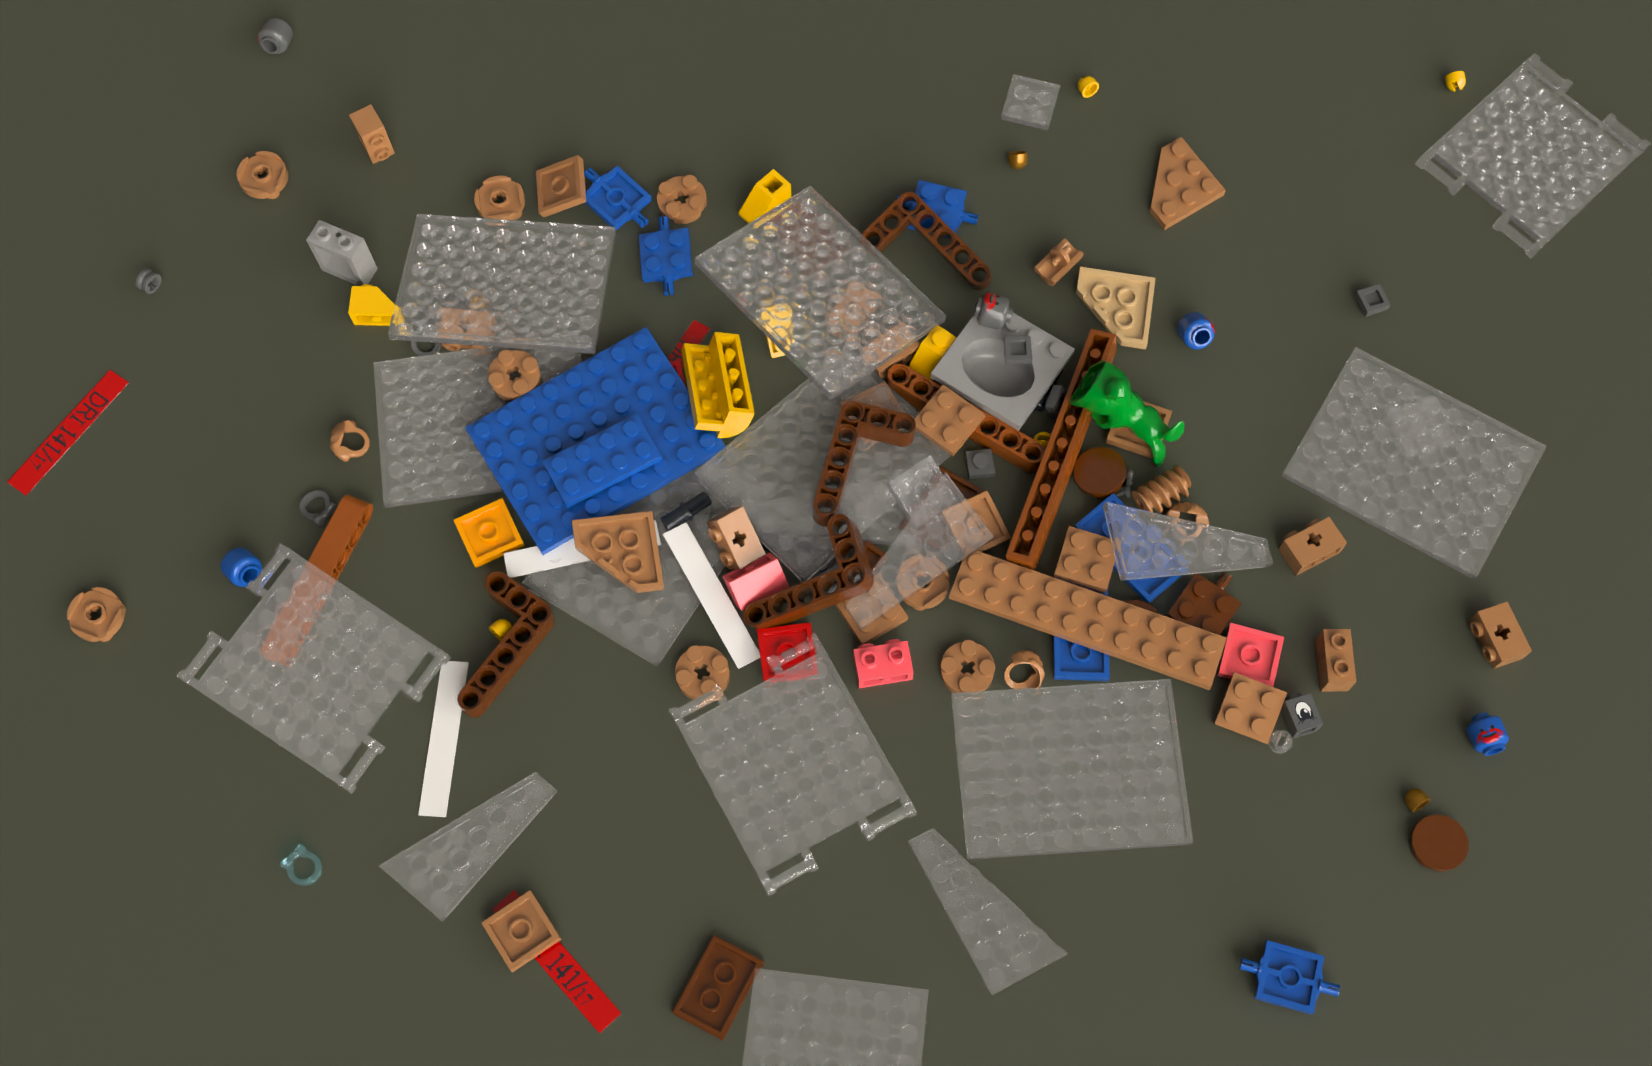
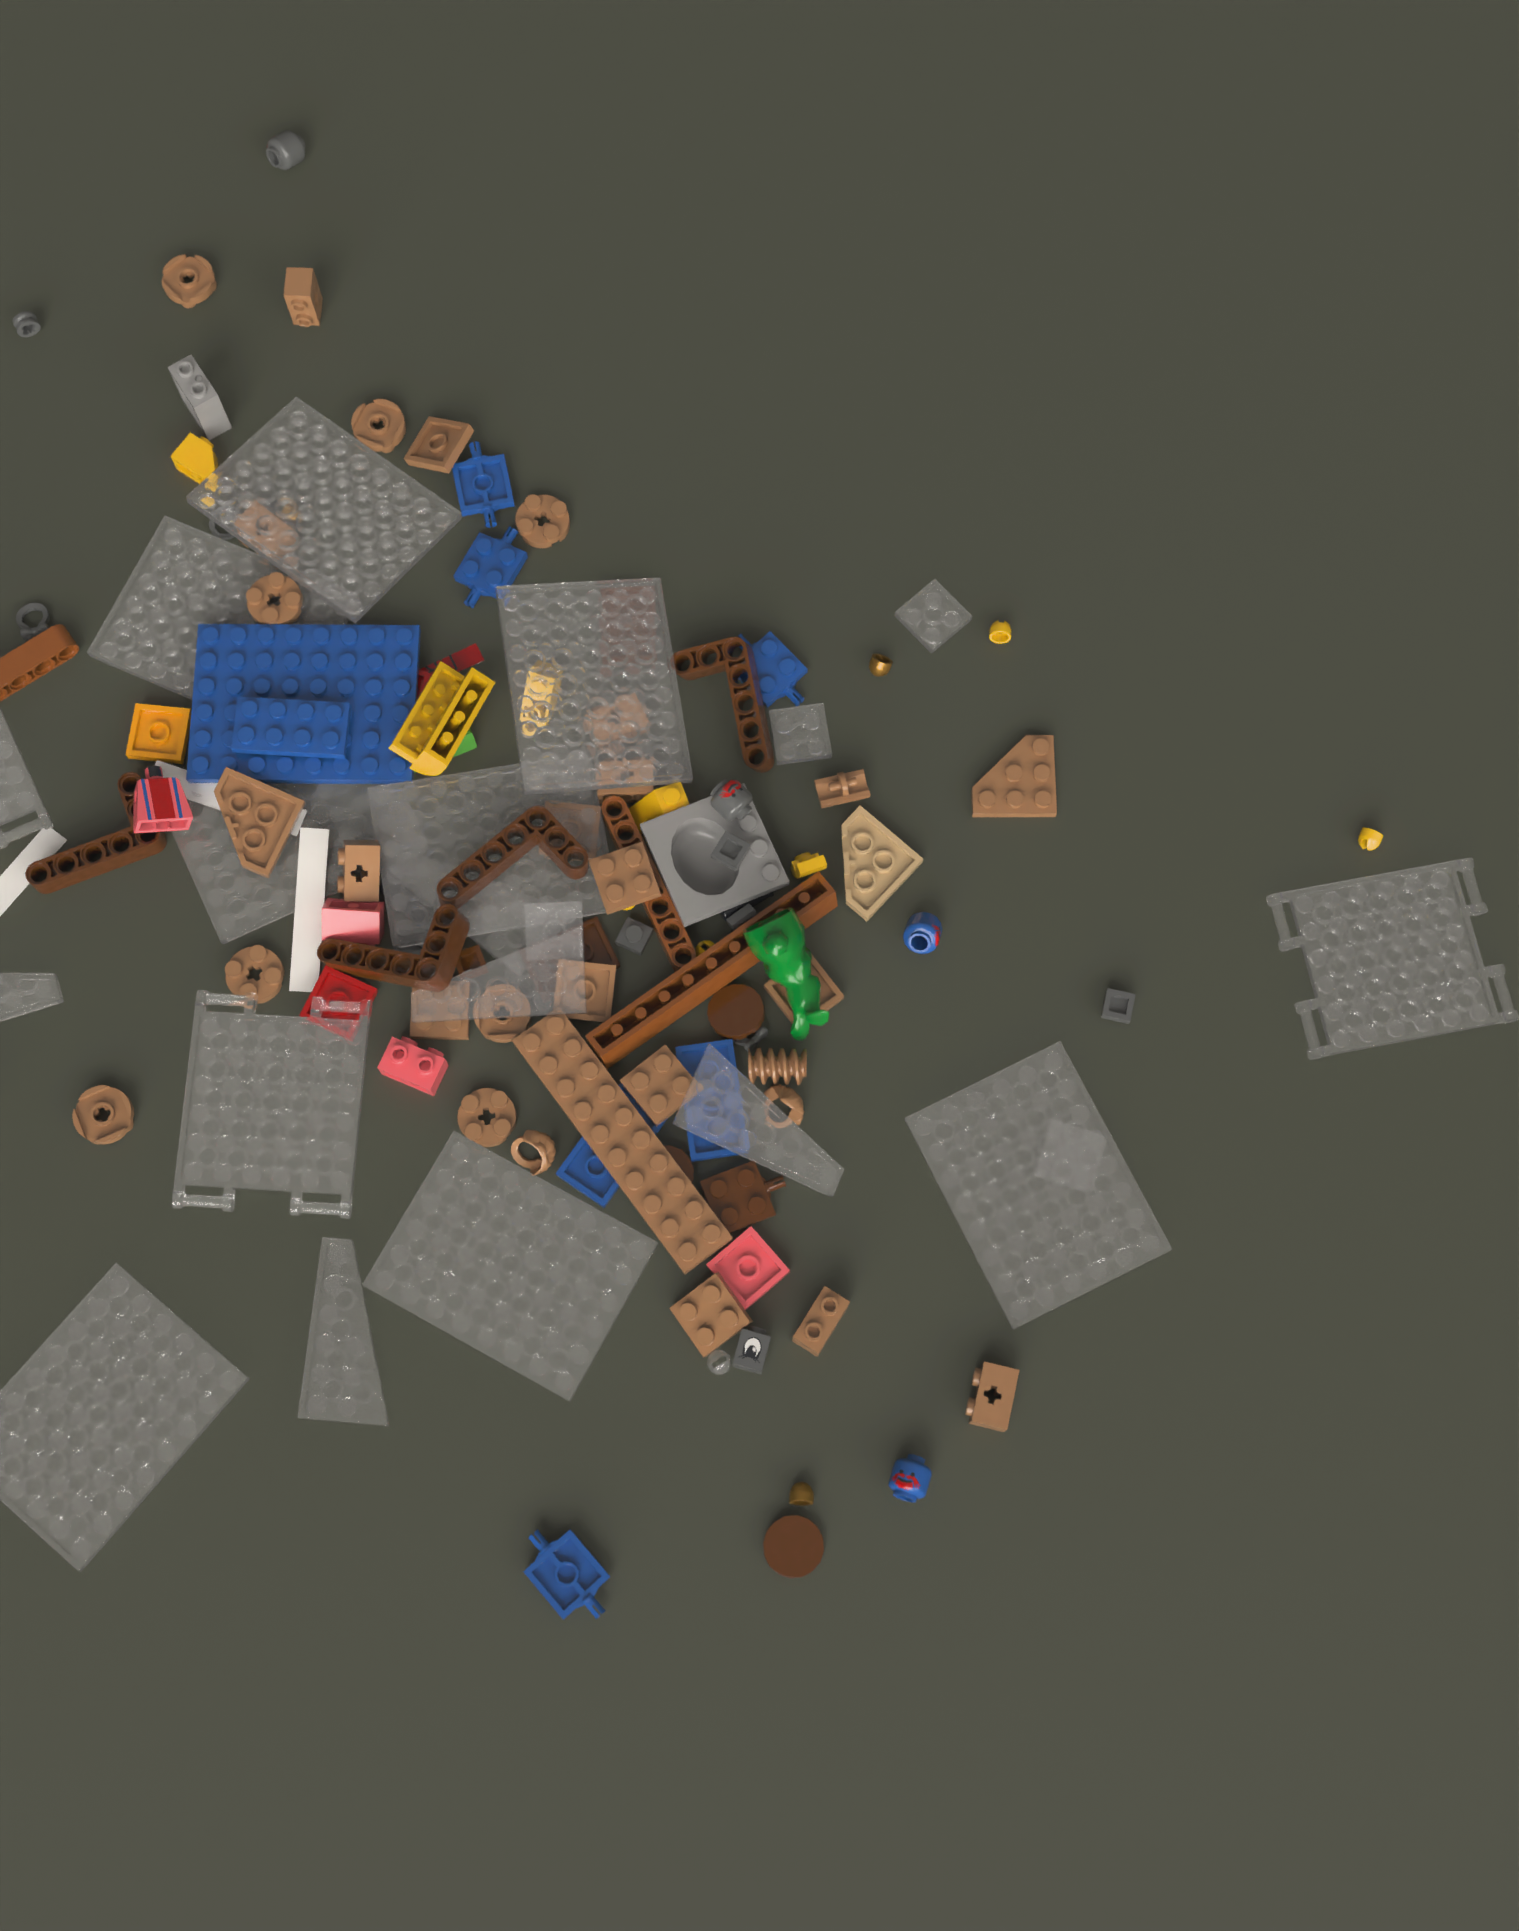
camera: 30 degrees right, 5 degrees up
(343, 452) = (88, 563): medium nougat piece -> none
(500, 628) = (110, 825): yellow hinge -> none
(536, 581) = (160, 804): none -> torso
(657, 842) = (88, 1108): none -> medium nougat plate
(686, 511) = (336, 819): black axle -> none
(717, 987) = (77, 1258): reddish brown tile -> none
(765, 196) = (615, 564): yellow slope -> none
(996, 241) = (800, 734): none -> clear plate
(1075, 332) = (807, 864): none -> yellow slope
(1326, 543) = (866, 1209): medium nougat brick -> none

